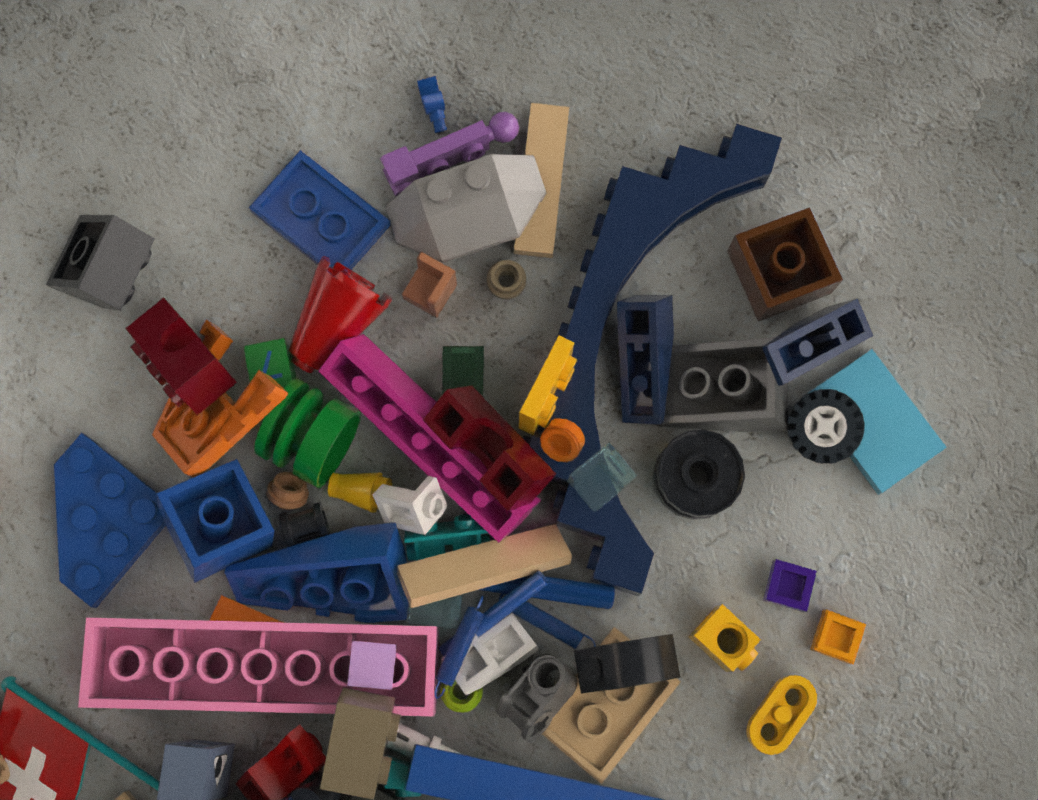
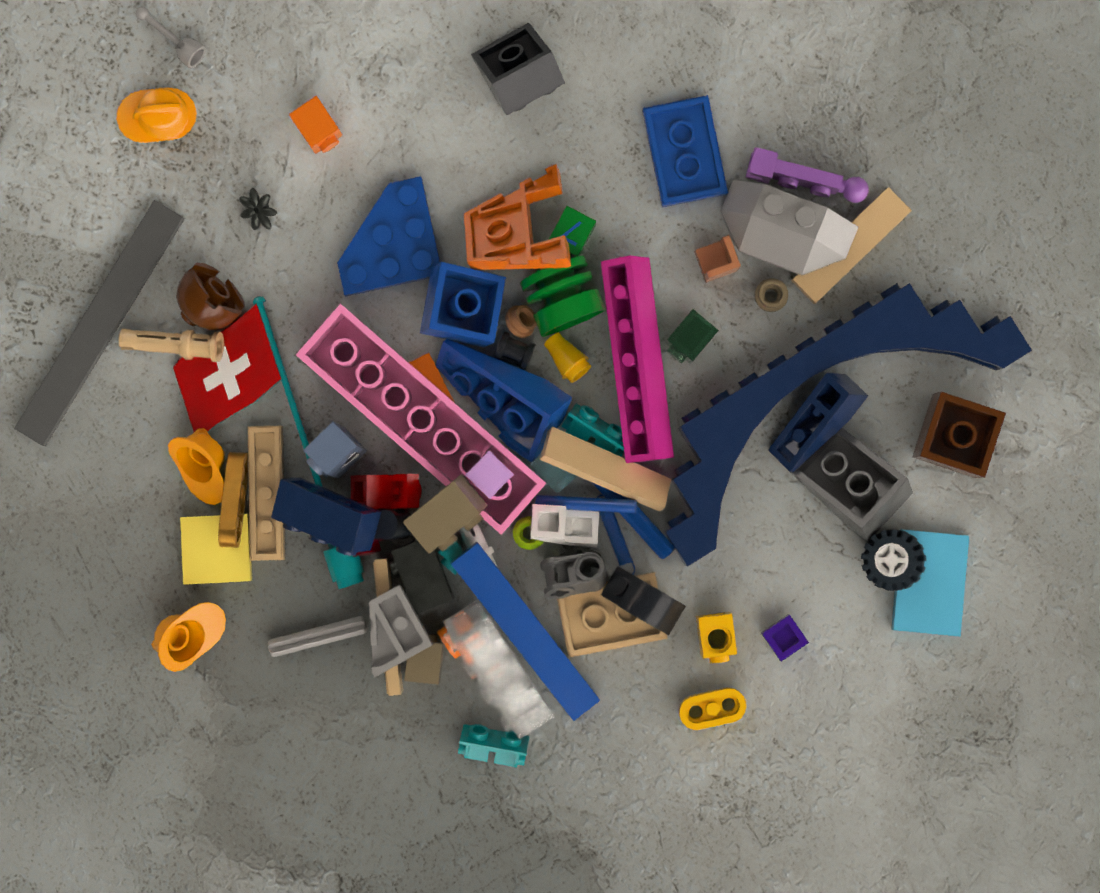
camera: 45 degrees right, 10 degrees up
(178, 358) = (521, 199): dark red arch -> none
(335, 309) = (641, 230): red cone -> none
(411, 509) = (588, 397): white bracket -> none
(433, 102) = (822, 133): blue piece -> none
(459, 646) = (550, 506): blue piece -> none
(469, 422) = (670, 376): dark red arch -> none
(554, 374) = (747, 389): yellow plate -> none
(562, 440) = (717, 432): orange tile -> none
(601, 477) = (722, 476): clear light blue panel -> none
(723, 470) = (807, 526): black wheel -> none
(816, 340) = (933, 501): dark blue slope -> none
(838, 637) = (788, 693): light orange tile -> none

